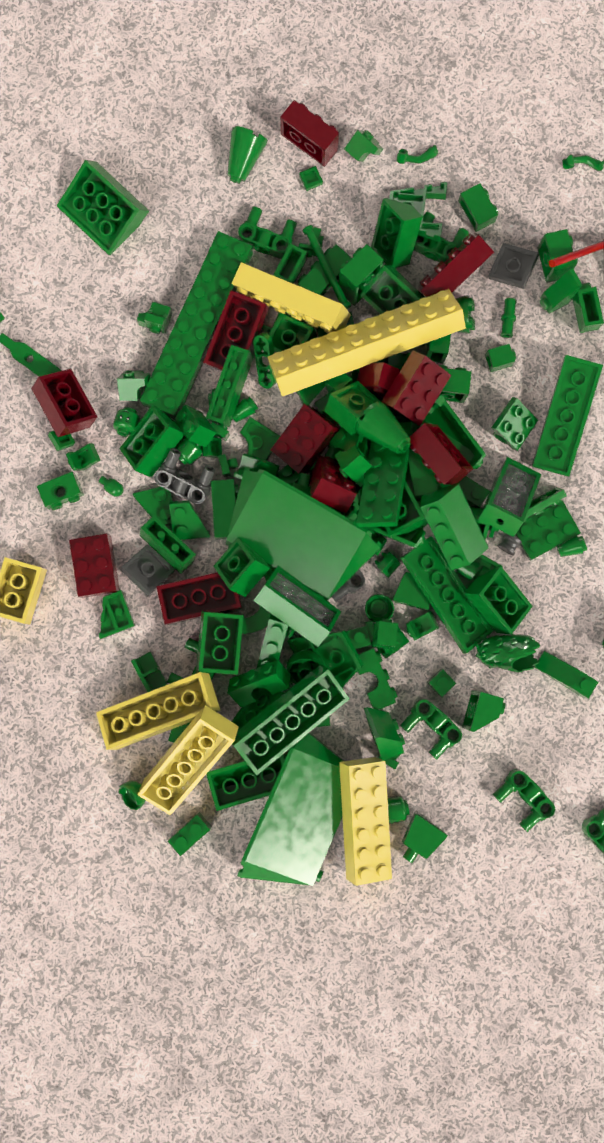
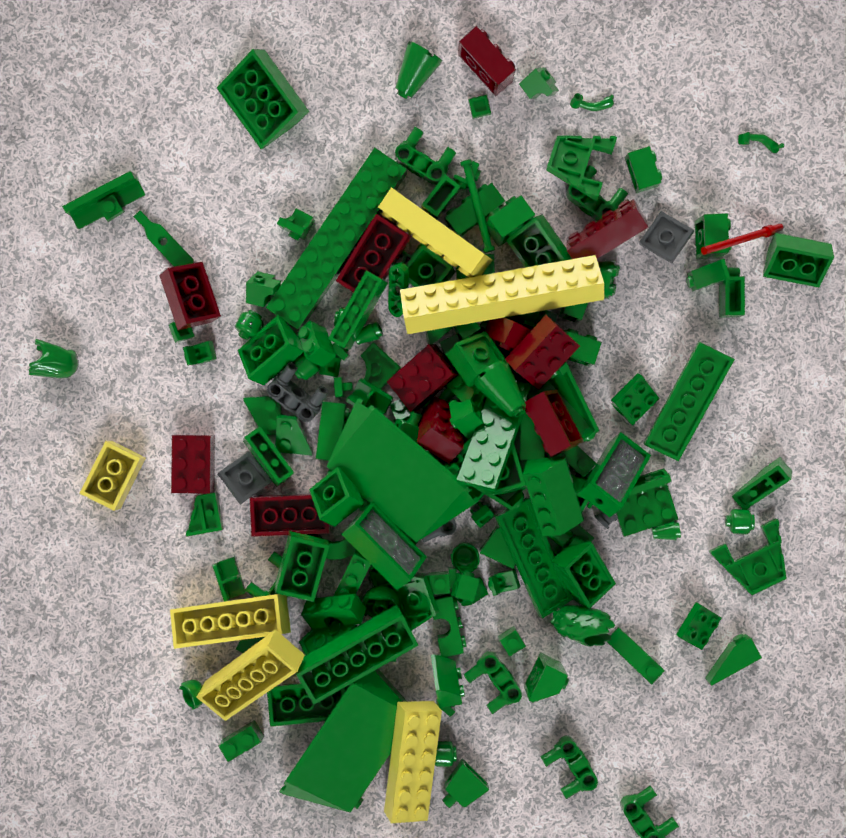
camera: 10 degrees right, 5 degrees up
(49, 490) = (160, 382): green brick -> none
(112, 486) = (224, 387): green cylinder -> none
(396, 232) = (554, 183): green slope -> none
(500, 357) = (634, 329): green brick -> none
(508, 317) = (650, 289): green pin -> none

